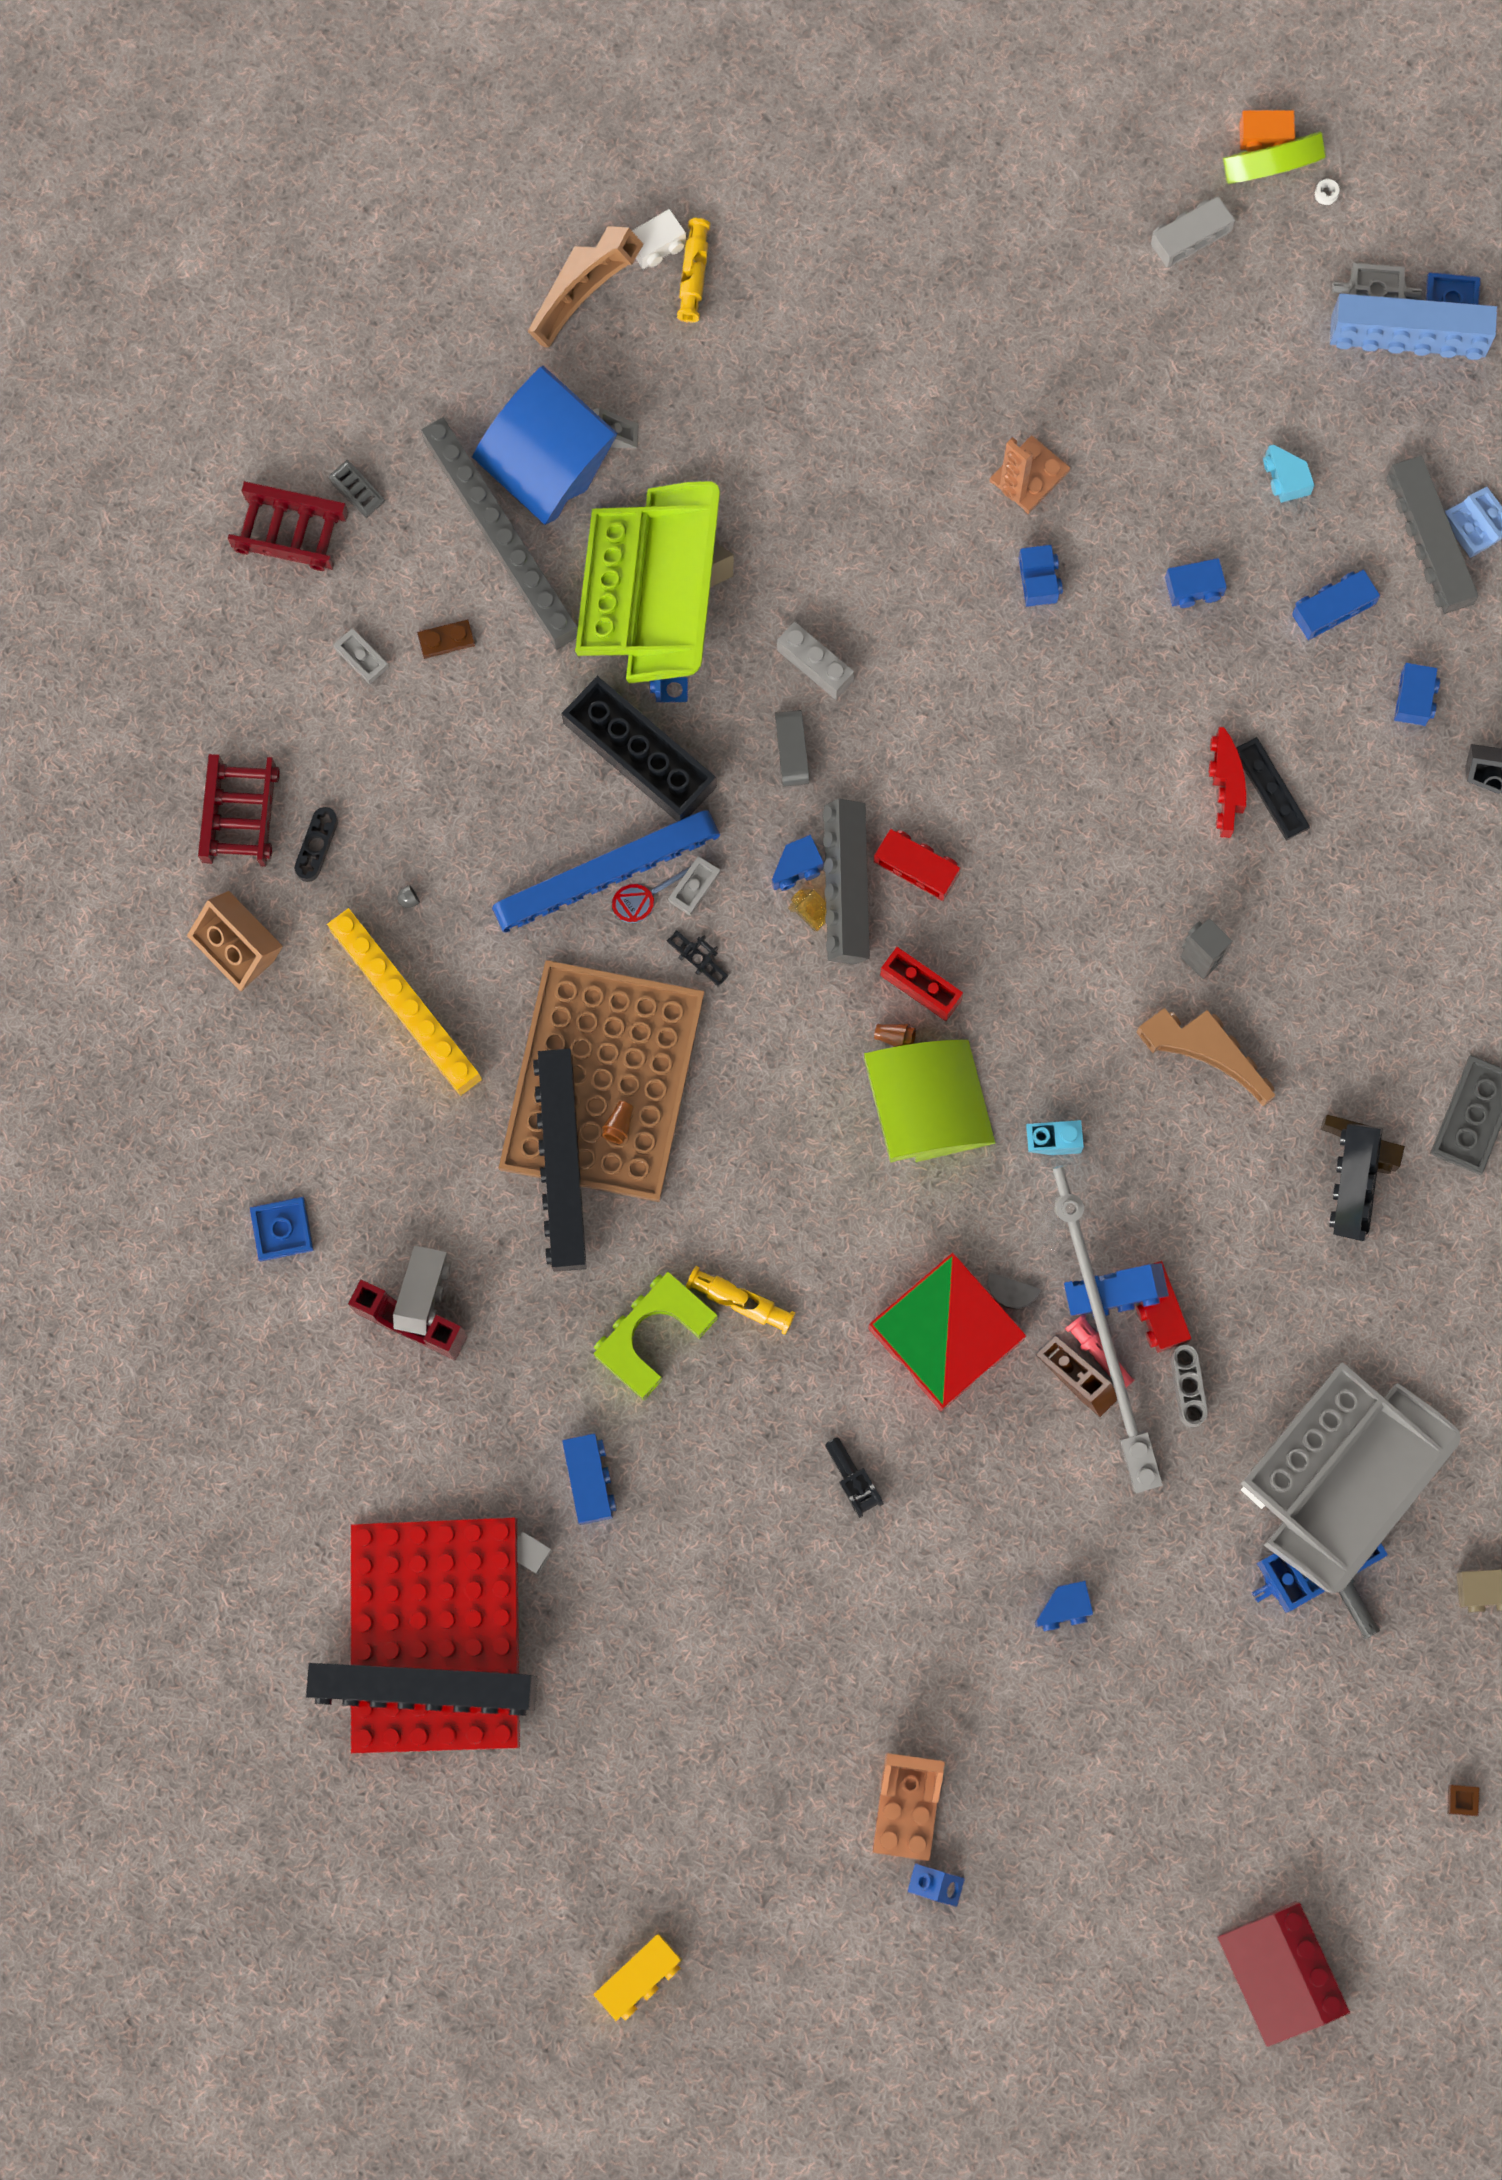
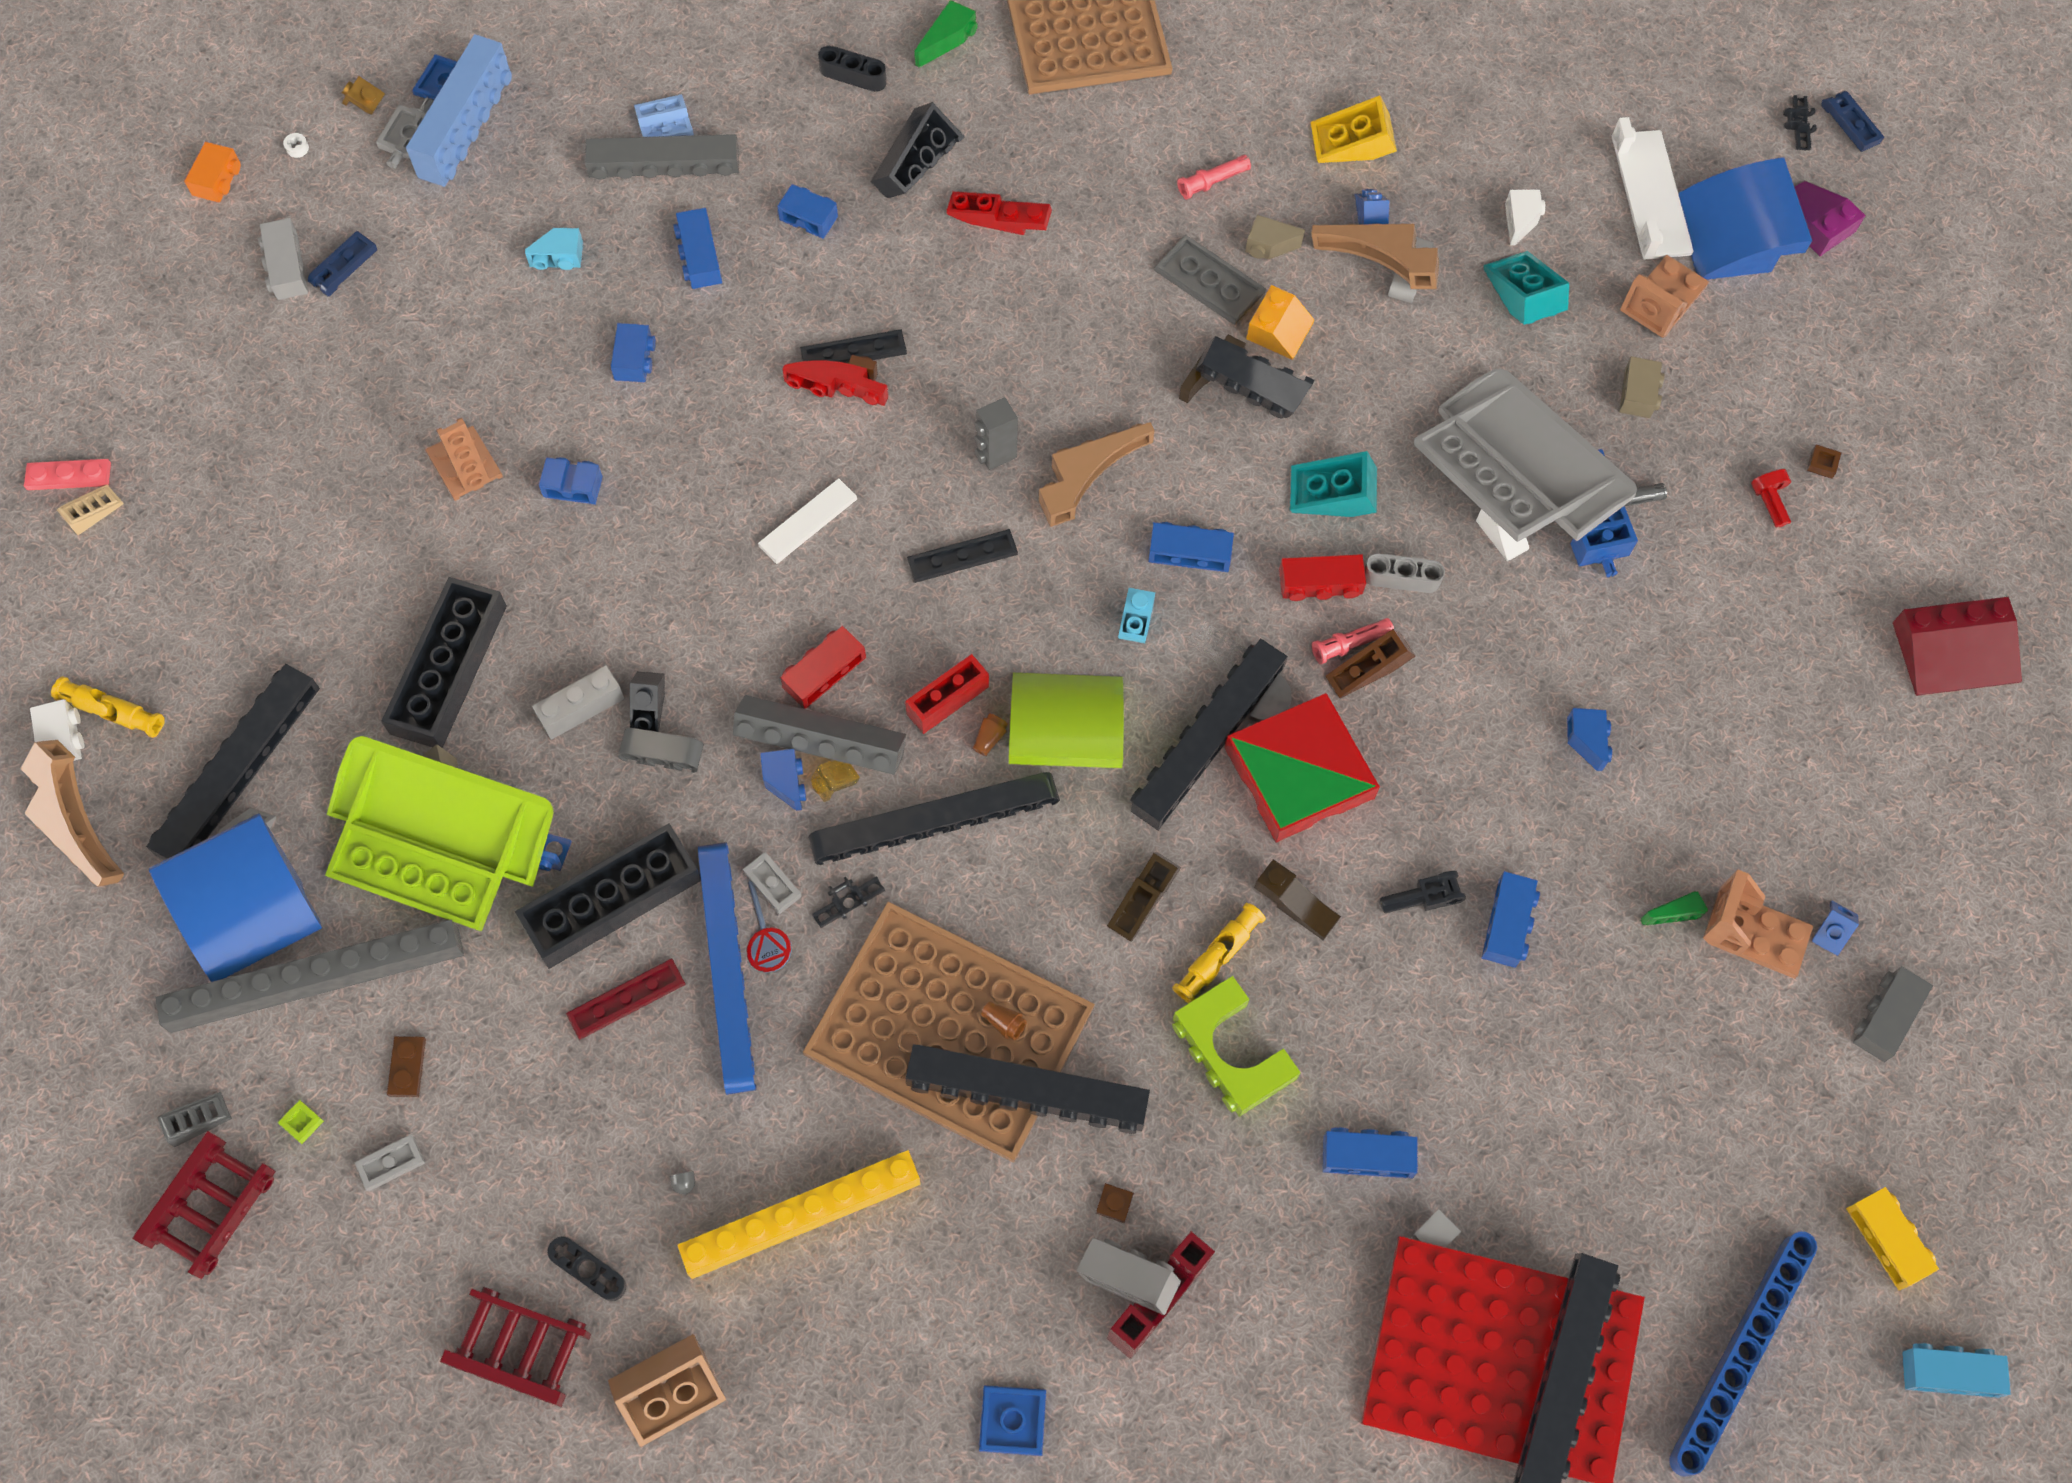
camera: 80 degrees left, 10 degrees down
(375, 573) = (300, 1122): none -> lime plate
(482, 1852) = (1732, 1361): none -> blue beam
(486, 1266) = (1114, 1203): none -> reddish brown plate
(530, 2052) = (1956, 1371): none -> dark azure brick
(555, 797) = (625, 999): none -> dark red tile
(670, 395) = (235, 763): none -> black brick
(776, 1218) = (1143, 896): none -> dark brown slope
(799, 1010) = (932, 817): none -> black beam
(811, 1359) = (1296, 900): none -> dark brown slope
(817, 532) = (444, 663): none -> black brick
(834, 719) = (646, 700): none -> black slope
(849, 1564) = (1511, 920): none -> blue brick
(859, 1949) = (1891, 1013): none -> dark grey brick
(874, 181) = (87, 520): none -> tan slope
(907, 1726) = (1681, 909): none -> green slope
(908, 141) = (67, 474): none -> coral plate
(950, 1234) = (1208, 734): none -> black brick
(1068, 804) = (807, 521): none -> white tile
(1077, 958) = (962, 555): none -> black tile
(1120, 1290) = (1303, 599): blue wedge -> none
(1137, 1445) = (1451, 630): light grey bar -> none
(1152, 1171) = (1191, 547): none -> blue brick
(1207, 285) = (342, 263): none -> dark blue plate
(1253, 804) = (866, 362): none -> reddish brown plate
(1266, 1297) = (1335, 486): none -> teal slope
(1274, 159) = (244, 176): lime slope -> none
(1405, 229) = (362, 95): none -> pearl gold bracket
(1410, 1742) = (1767, 487): none -> red piece
(1441, 1198) = (1280, 323): none -> light orange slope
(1479, 880) = (993, 213): none -> red slope

